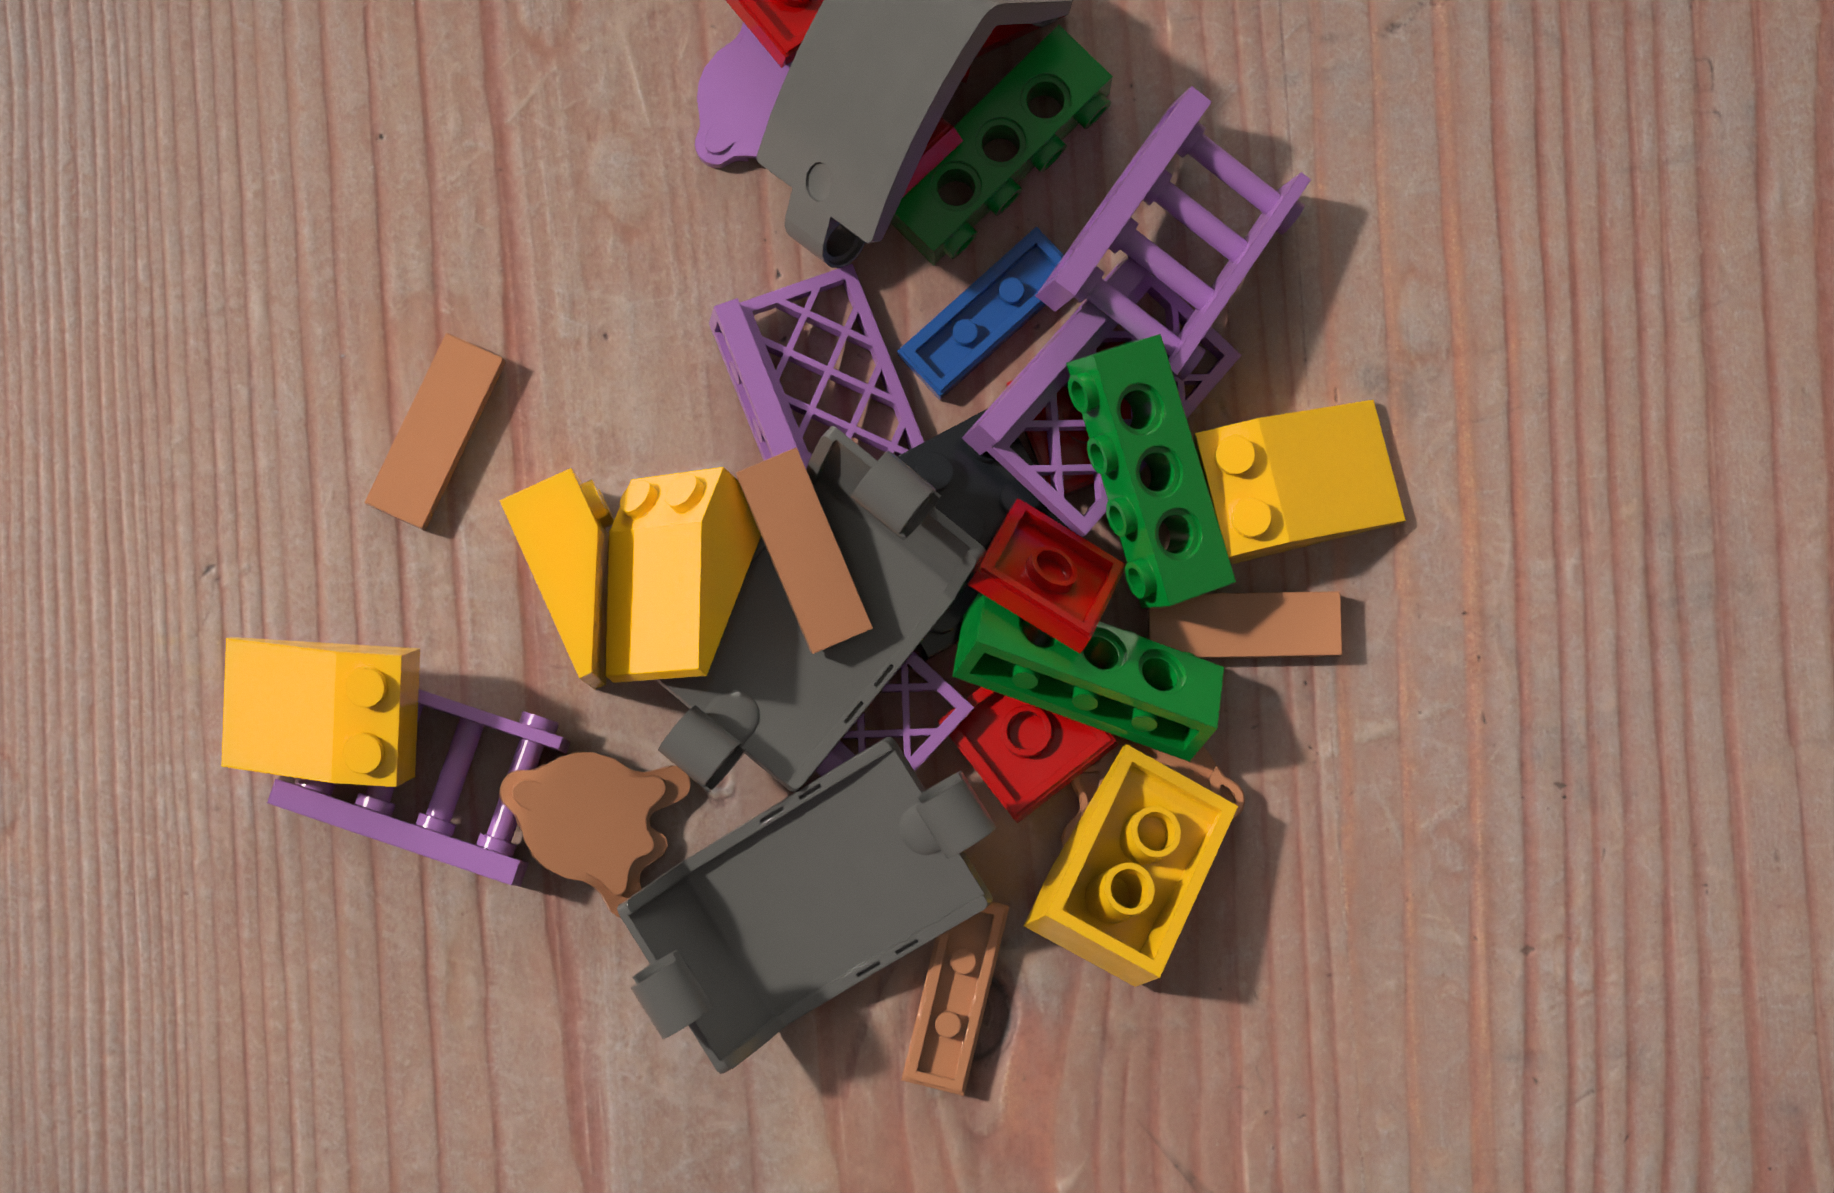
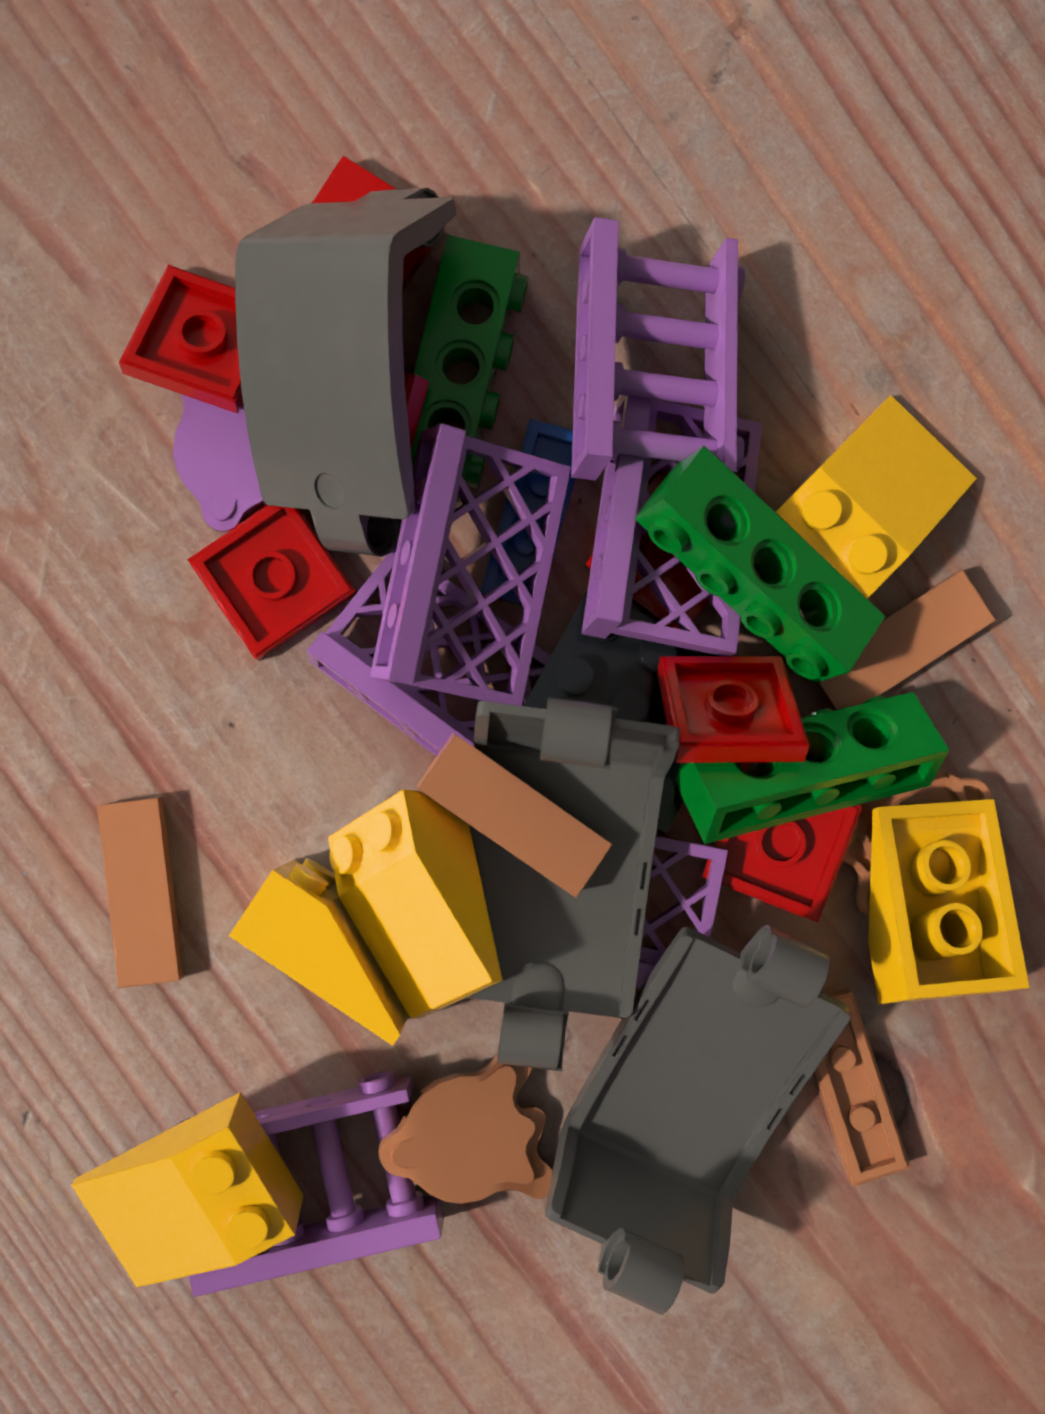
camera: 35 degrees left, 5 degrees up
(722, 229) = (272, 577): none -> red tile
(864, 282) = (421, 556): none -> medium lavender fence

